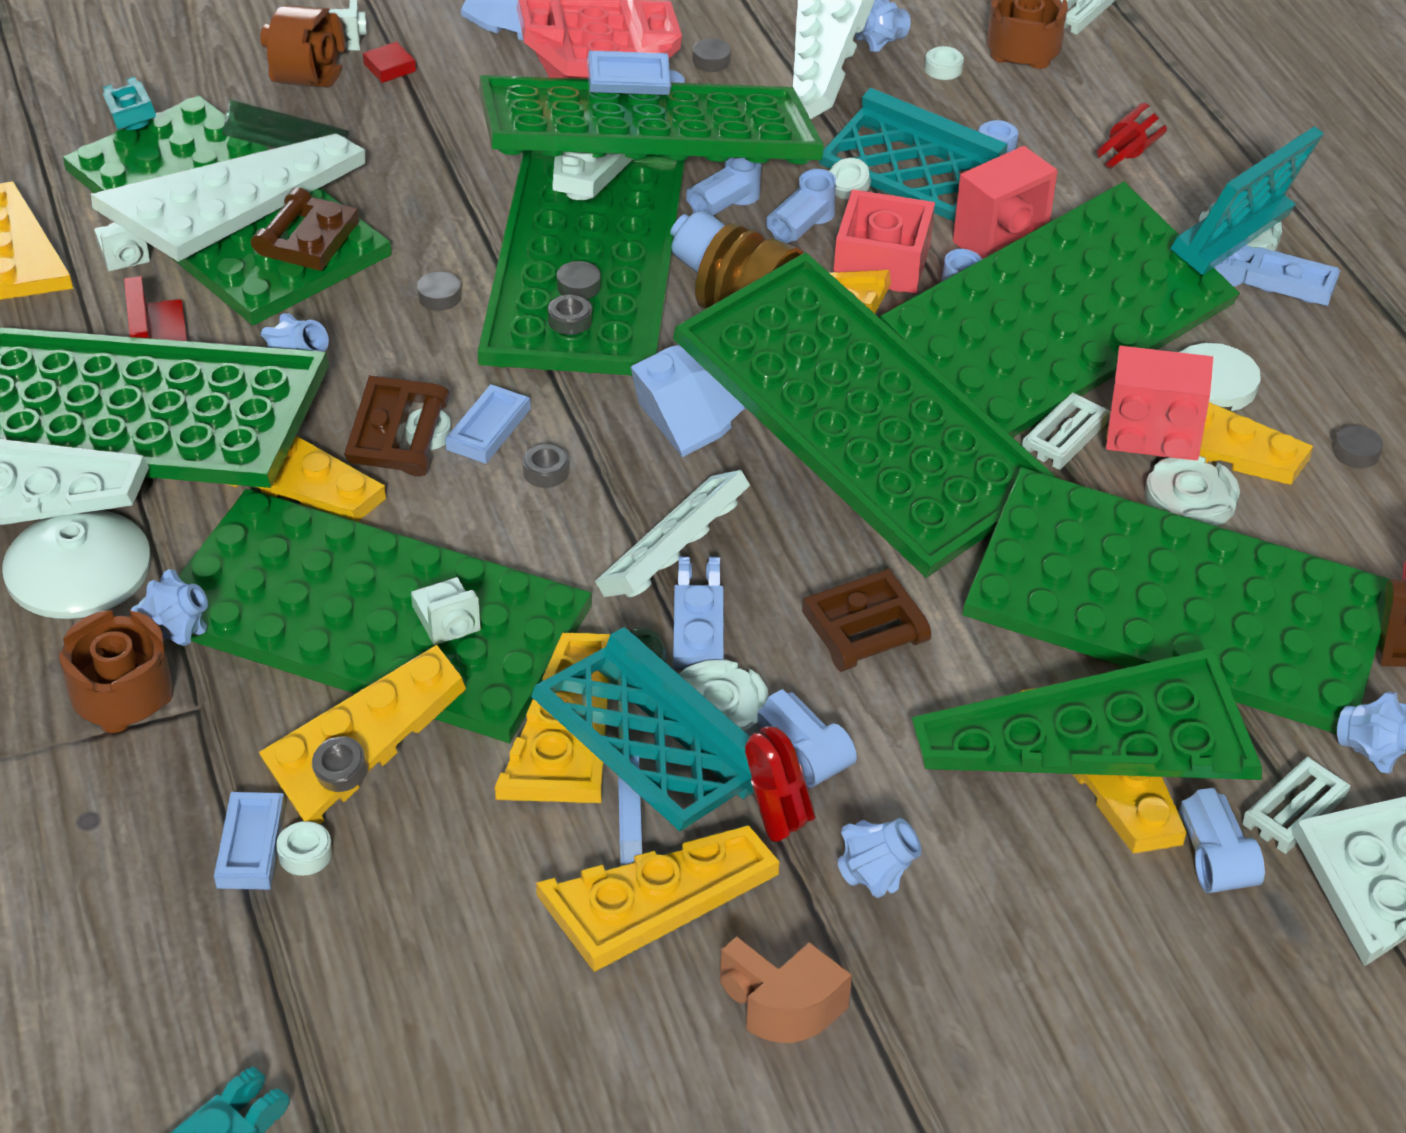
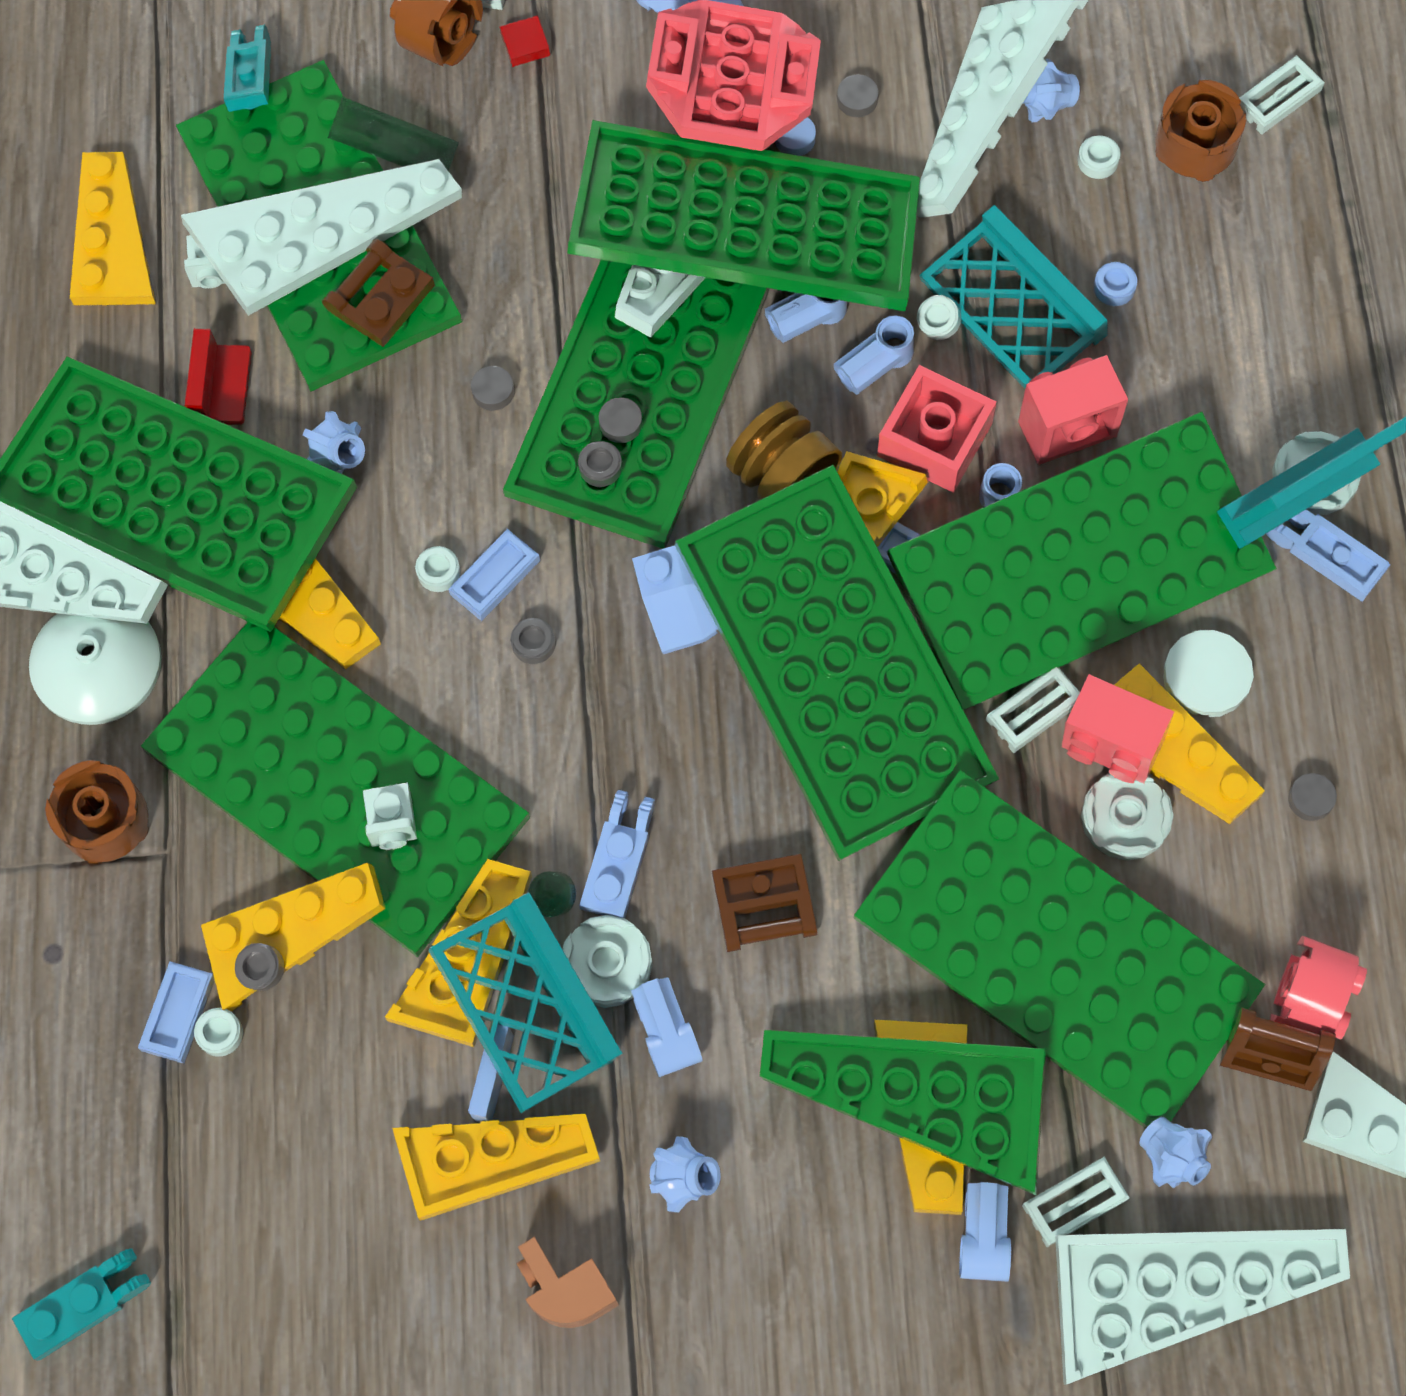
camera: 20 degrees right, 25 degrees up
(175, 607) = (153, 762): light blue rock -> none
(383, 419) = (393, 563): reddish brown plate -> none
(628, 72) = (741, 152): light blue tile -> none
(682, 526) = (621, 761): light aqua plate -> none
(692, 237) = (756, 386): light blue head -> none
(778, 783) = (618, 1085): red arm -> none
(1130, 137) = (1250, 320): red arm -> none

